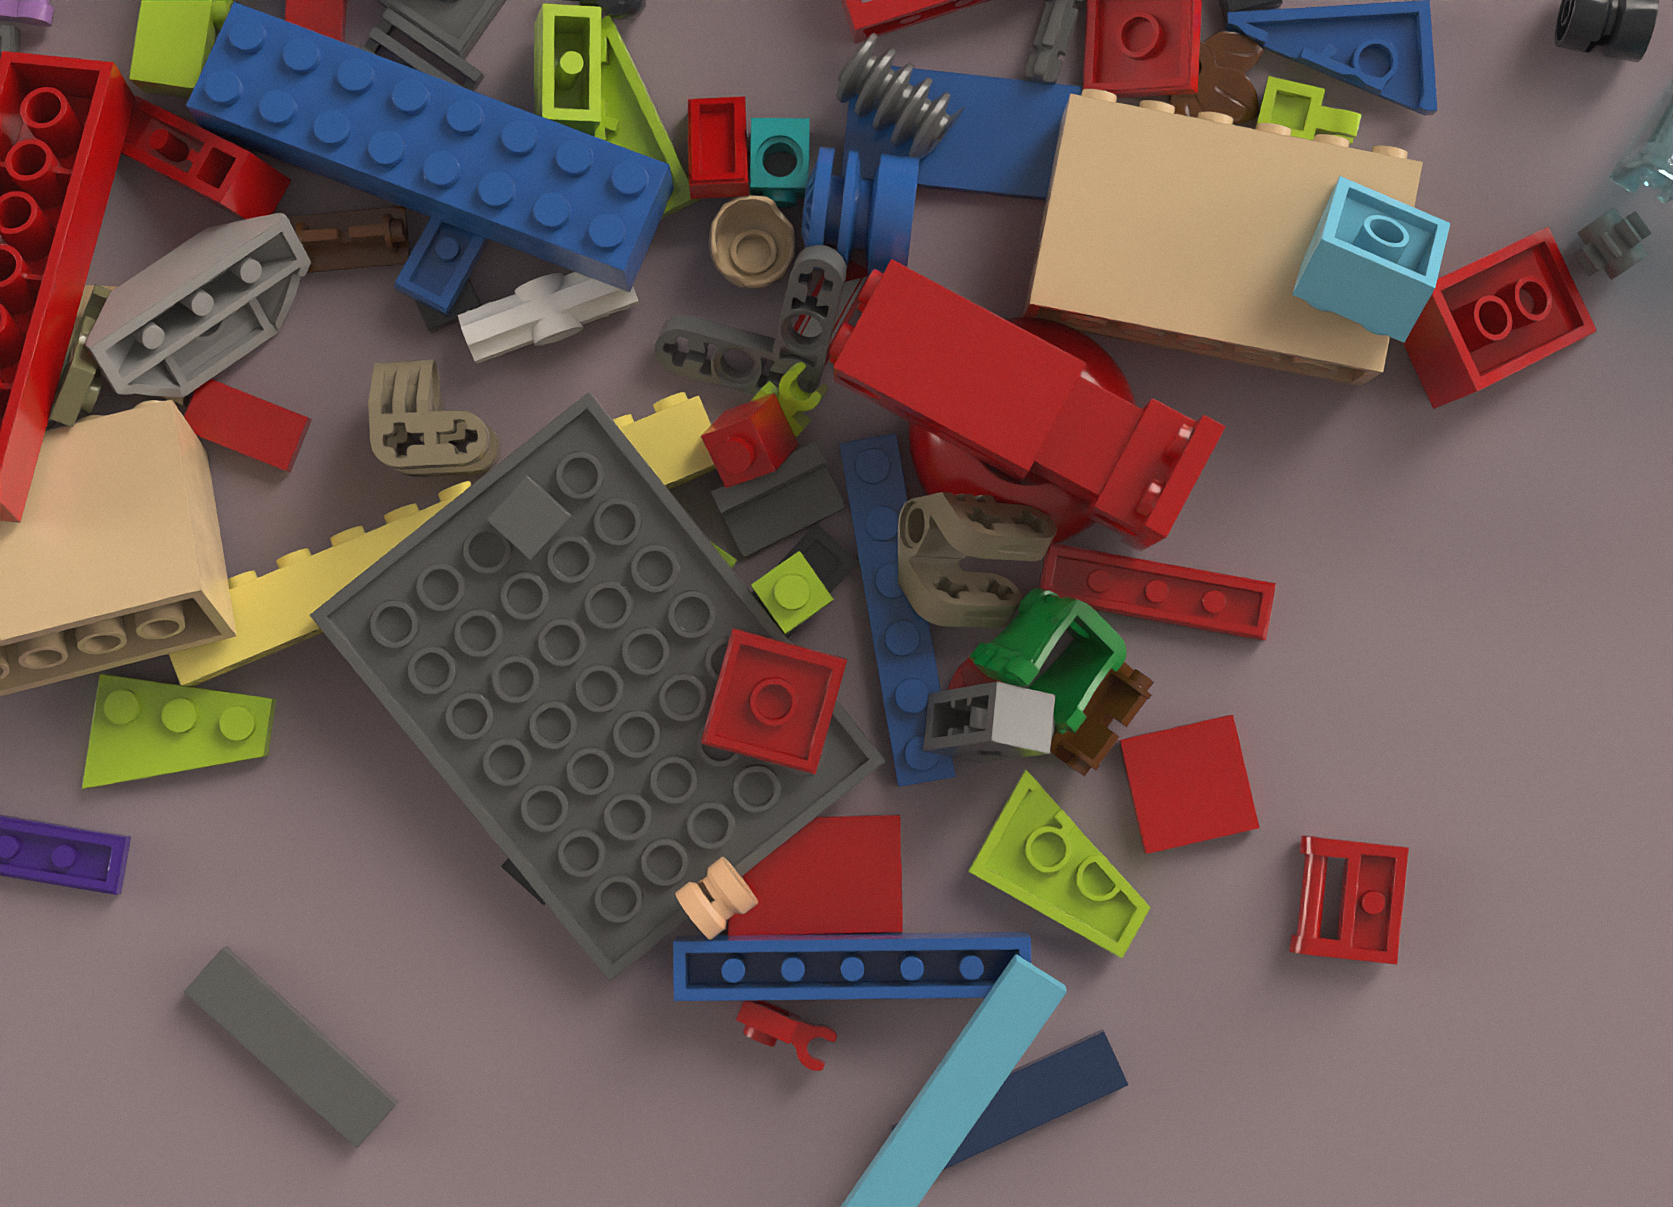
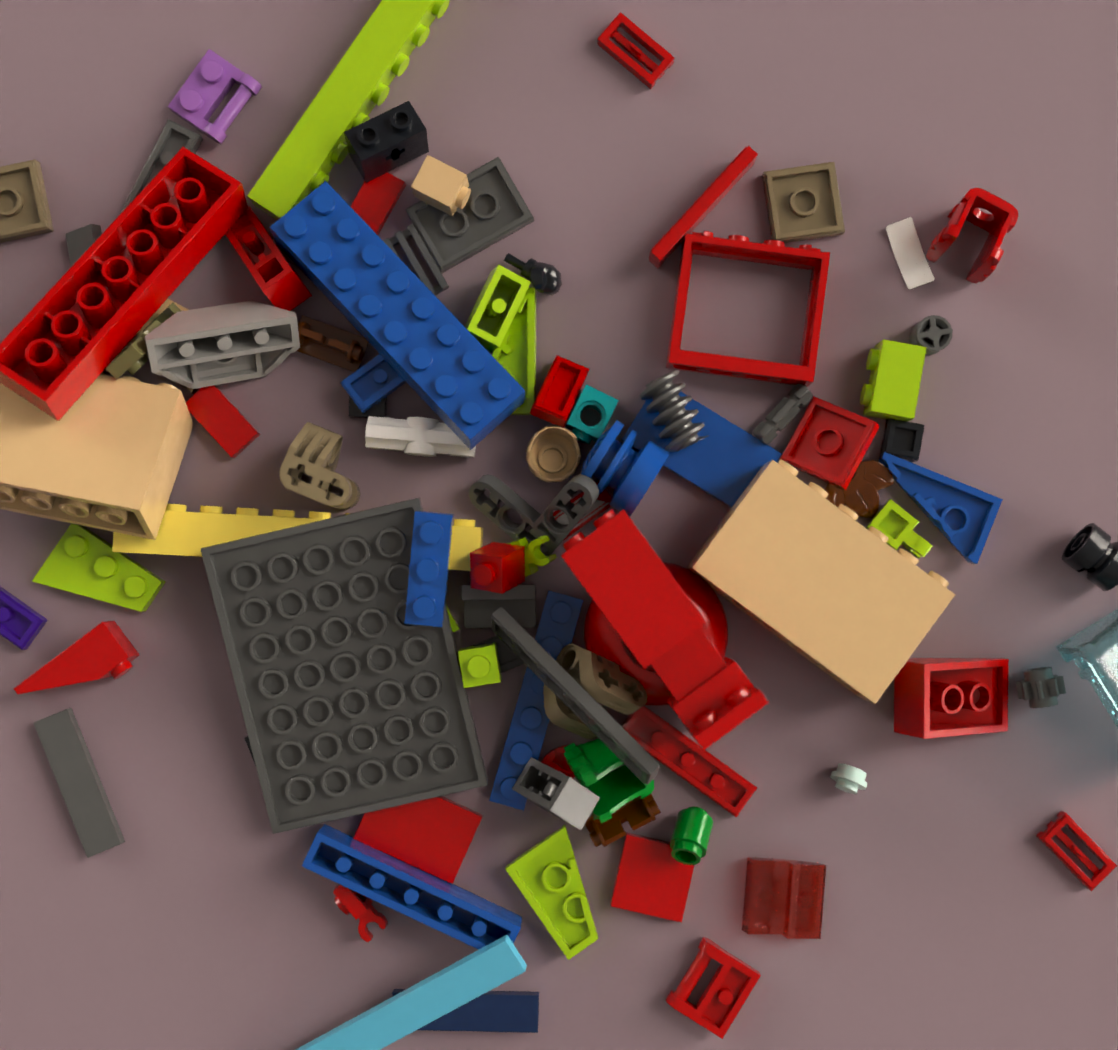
camera: 25 degrees right, 0 degrees up
(223, 857) = (94, 656): none -> red slope
(528, 517) = (350, 553): dark grey tile -> none
(652, 485) = (428, 568): none -> blue plate
(730, 896) = (353, 818): light nougat wheel -> none
(773, 701) = (439, 722): red tile -> none
(949, 567) = (575, 697): none -> dark grey tile
(1212, 694) = (691, 835): none -> green brick
(1372, 260) = (900, 639): medium azure slope -> none
(1390, 723) = (784, 898): none -> clear red slope
(1401, 506) = (849, 778): none -> light aqua plate

